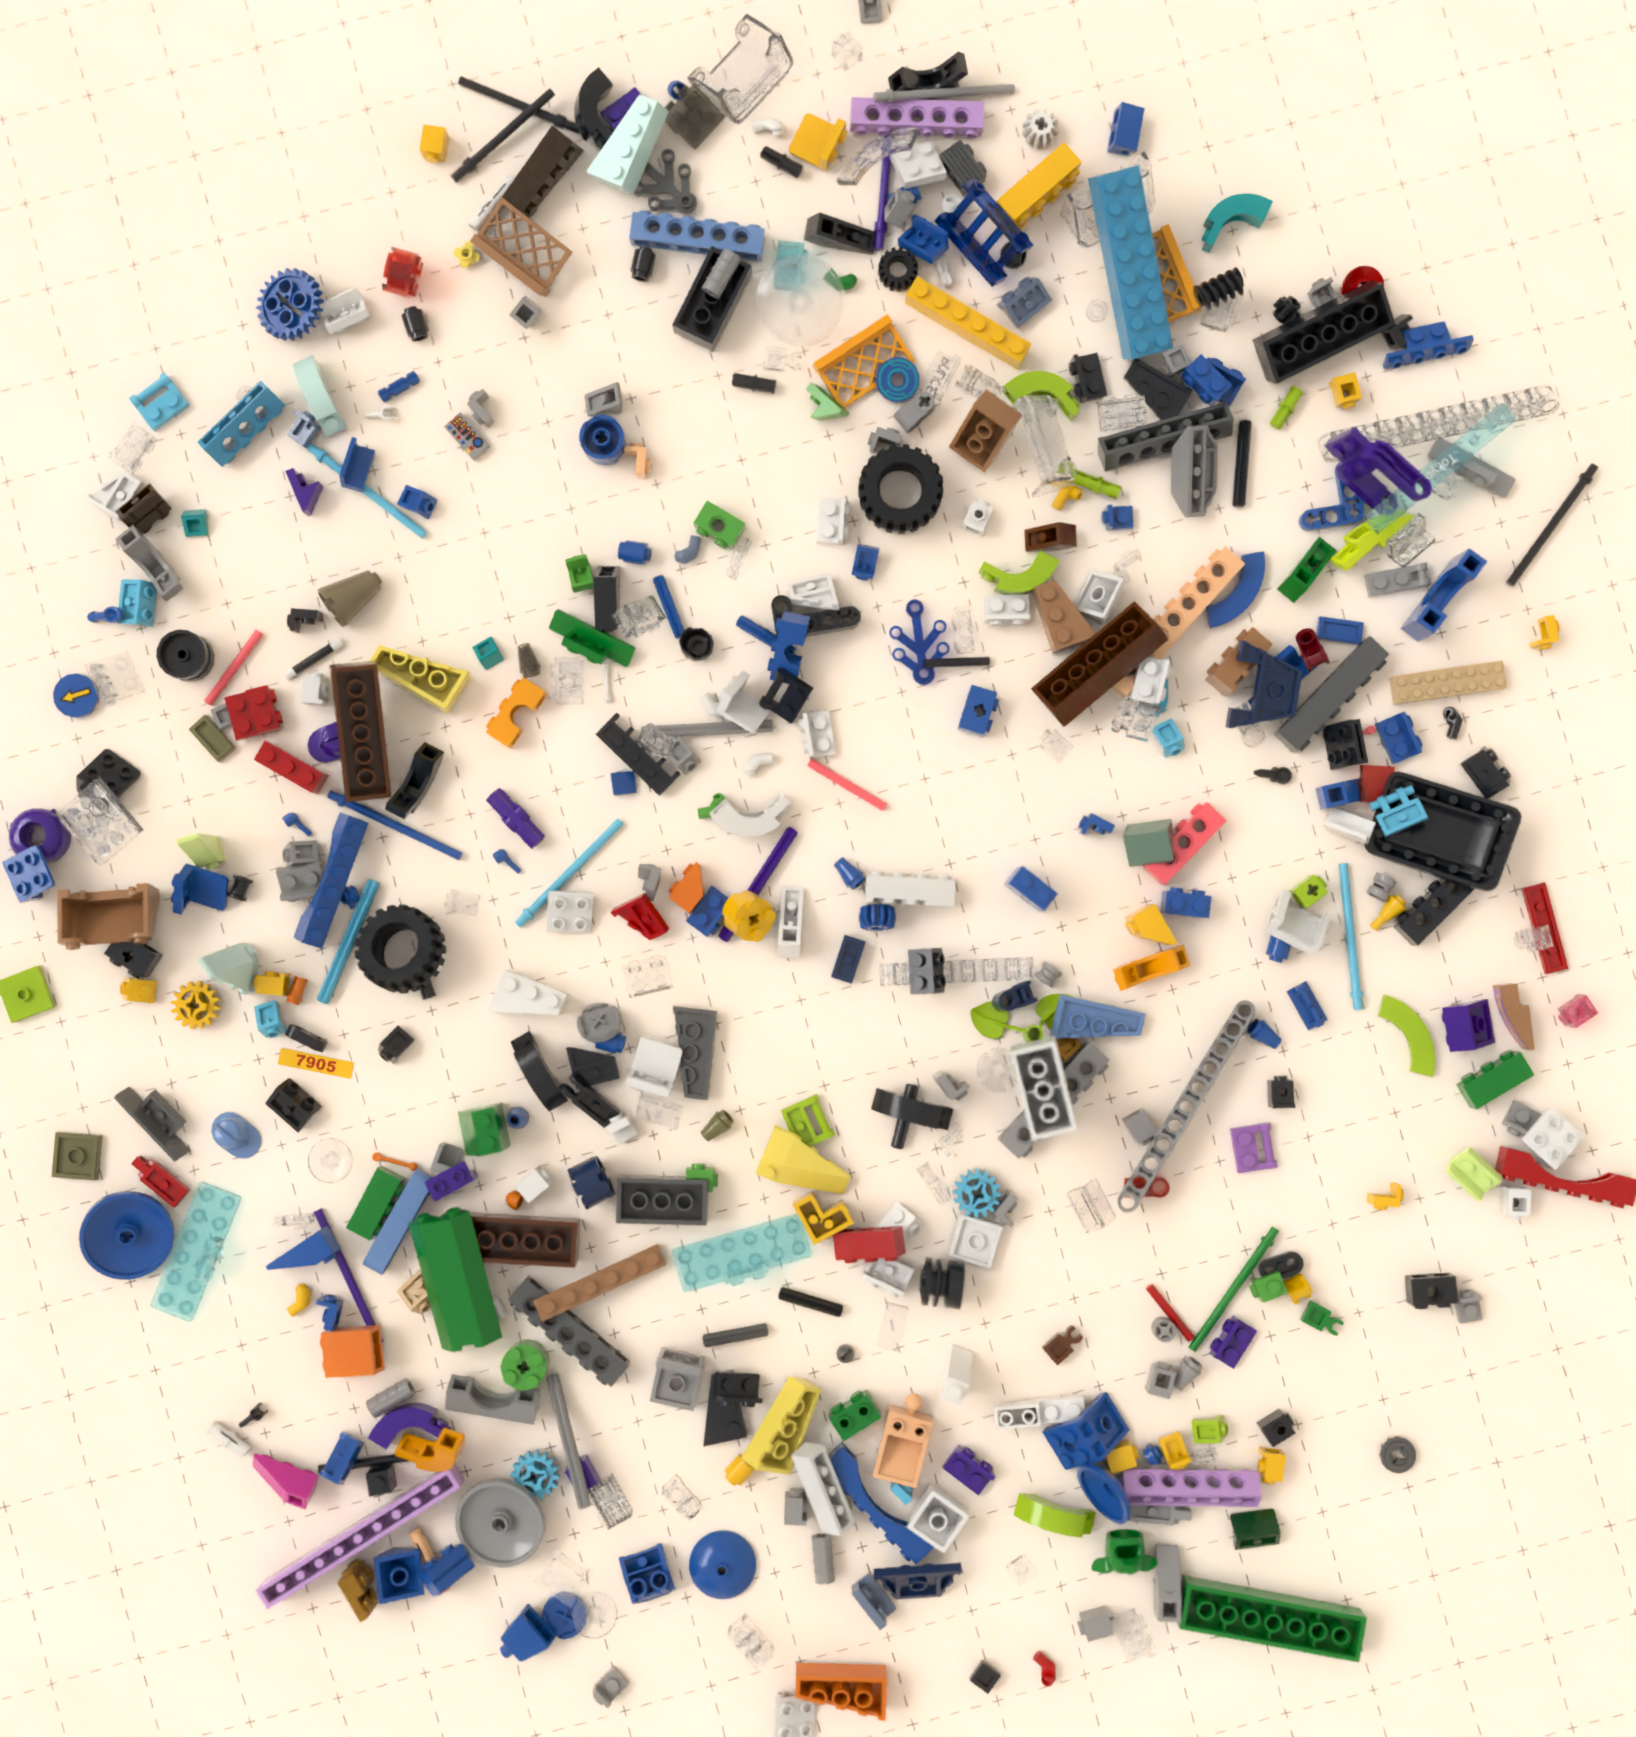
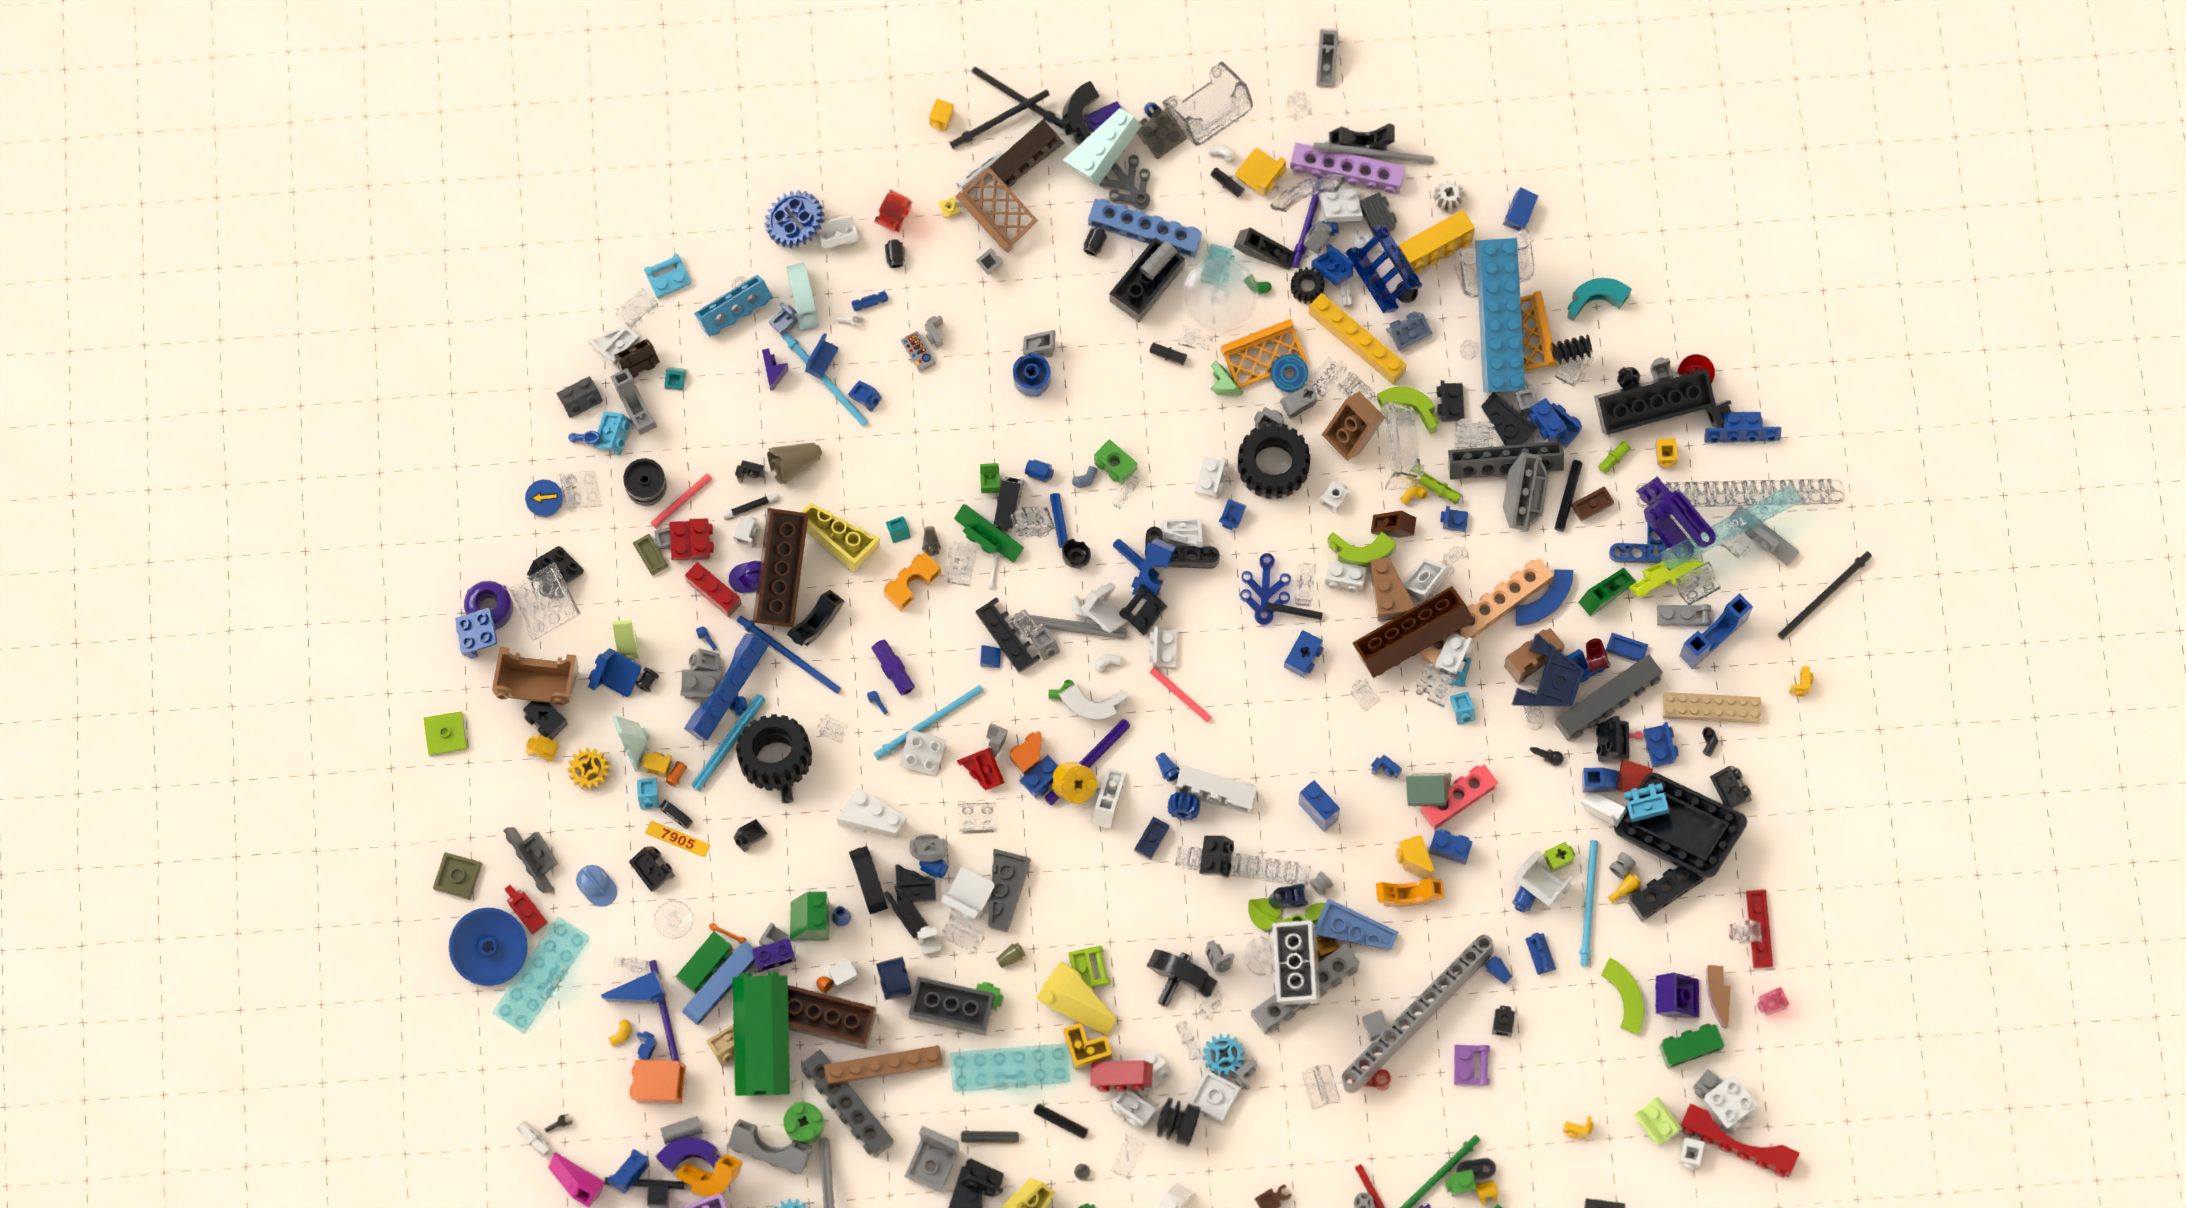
camera: 10 degrees right, 15 degrees down
(89, 567) = (579, 397): none -> dark grey bracket
(643, 464) = (1061, 399): light nougat bracket -> none
(1271, 468) = (1592, 503): none -> reddish brown plate

